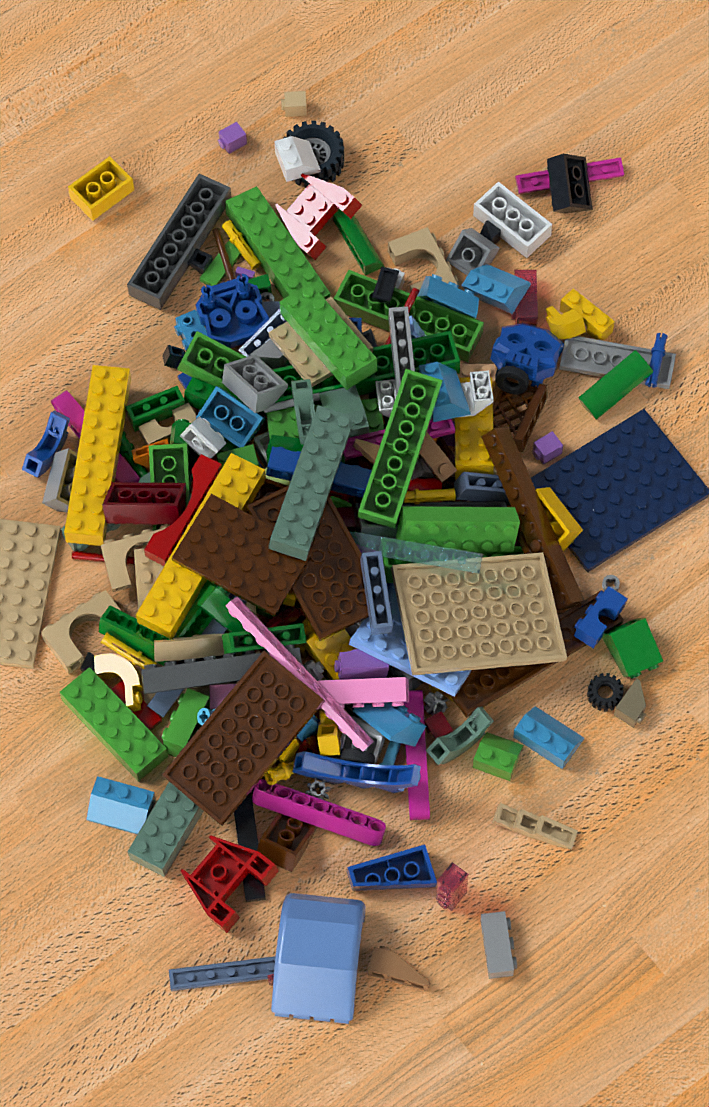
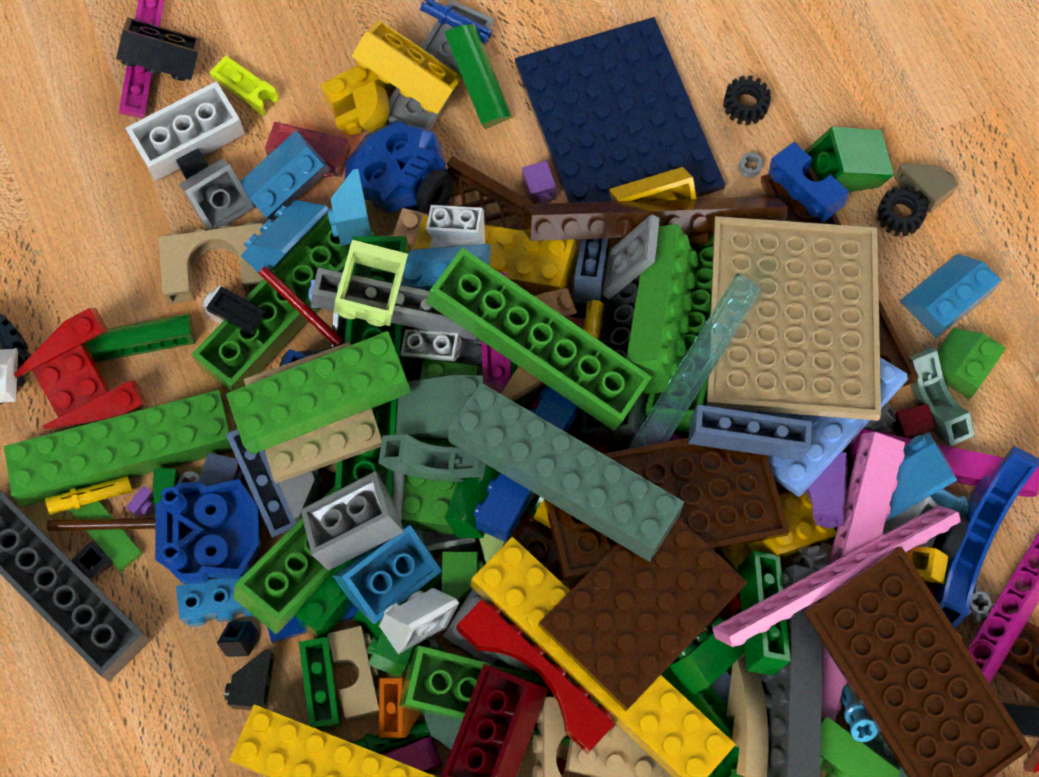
camera: 75 degrees left, 5 degrees up
(148, 372) = (251, 683): none -> pearl dark grey slope
(403, 322) = (378, 258): none -> yellowish green window
(474, 327) = (349, 210): none -> medium azure slope
(490, 502) = (630, 256): none -> light grey tile
(563, 245) = (244, 84): none -> neon yellow plate
(602, 334) = (406, 66): none -> yellow slope
(656, 578) = (751, 88): none -> black tyre

